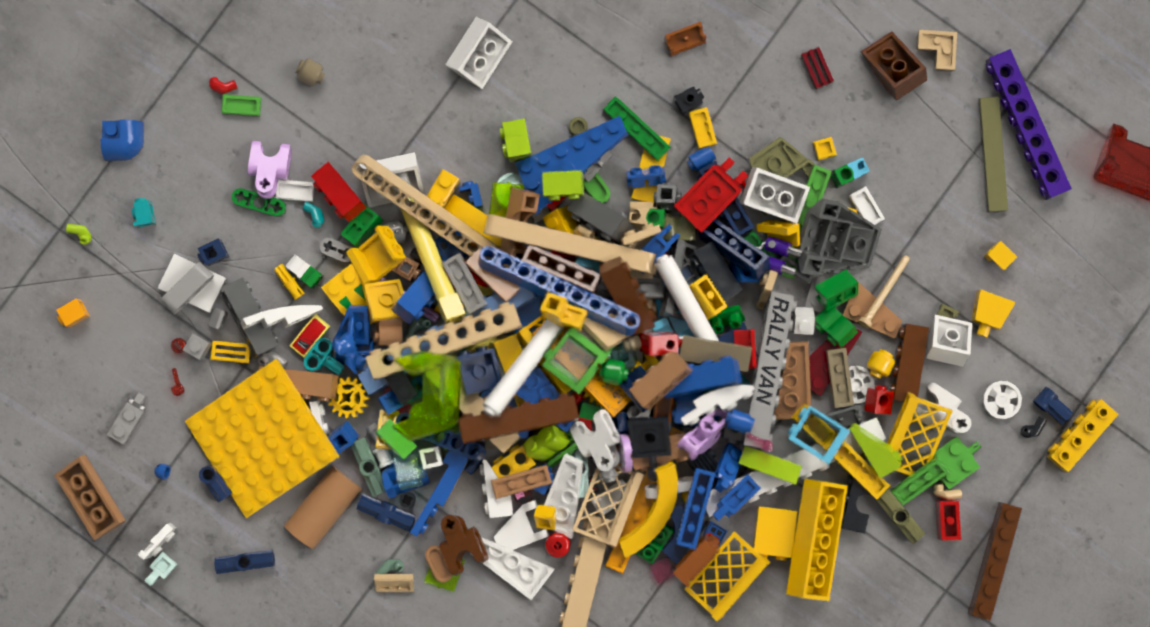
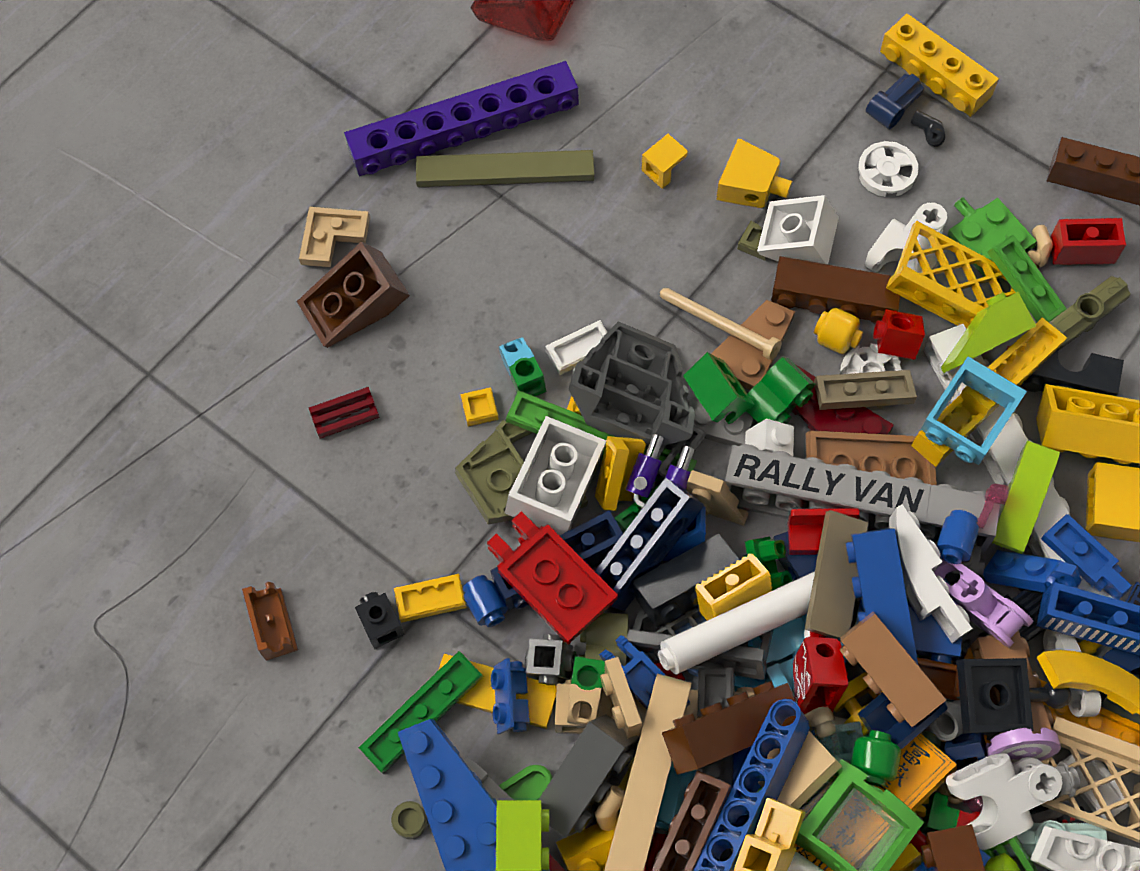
camera: 85 degrees left, 20 degrees down
(845, 416) = (927, 387): dark grey hinge -> none

